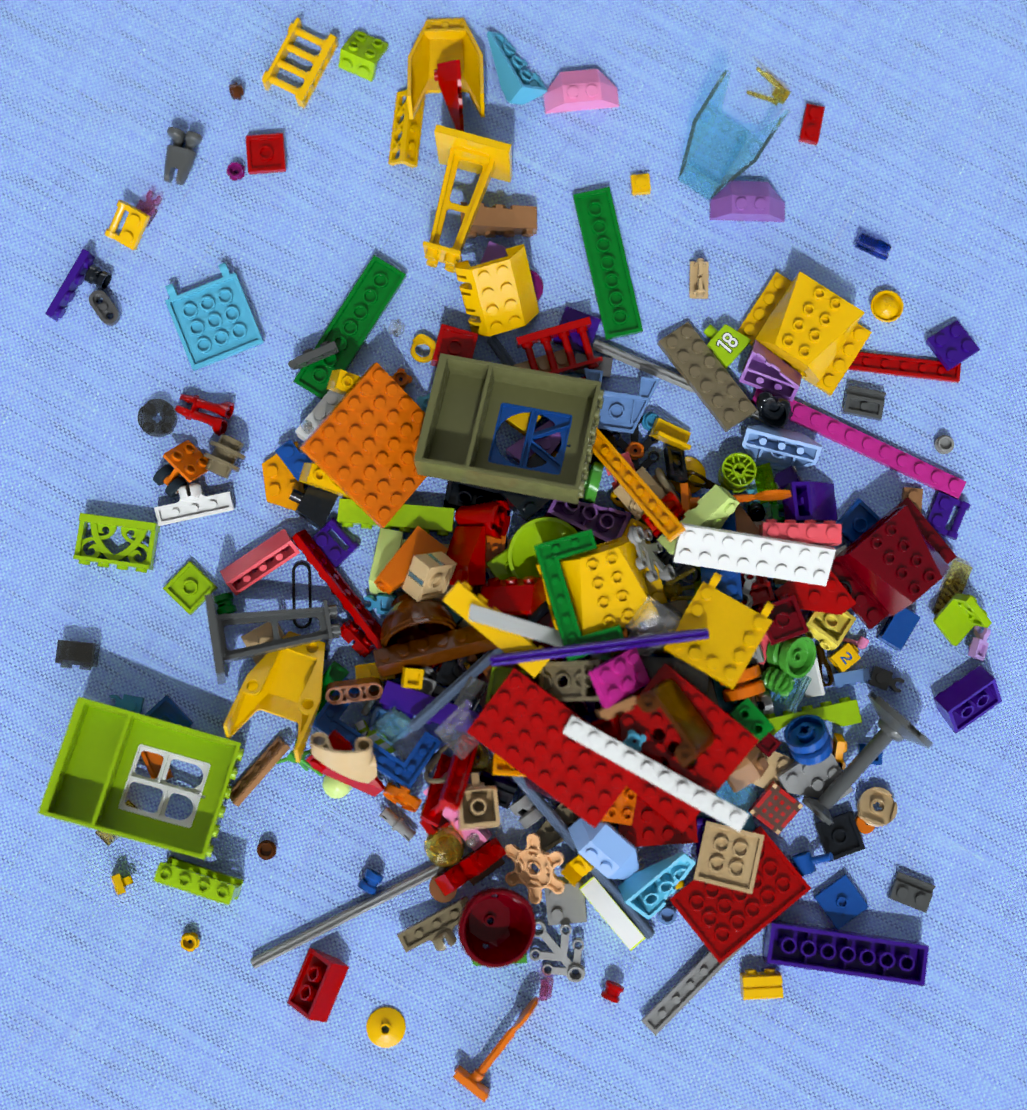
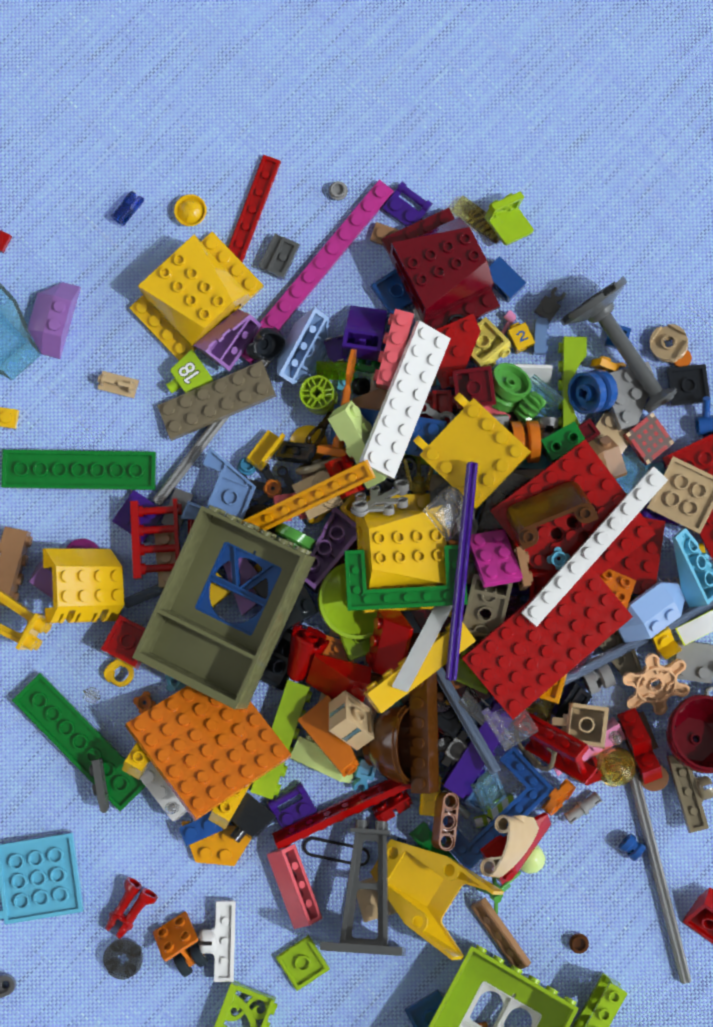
camera: 75 degrees left, 0 degrees up
(224, 456) = (179, 898): dark tan piece -> none
(225, 603) = (327, 931): green wheel -> none
(412, 678) = (447, 760): yellow tile -> none
(822, 660) = (518, 359): dark brown piece -> none
(952, 345) = (244, 158): dark purple plate -> none
(968, 698) = (586, 231): dark purple slope -> none
(979, 644) = (539, 208): lavender plate -> none

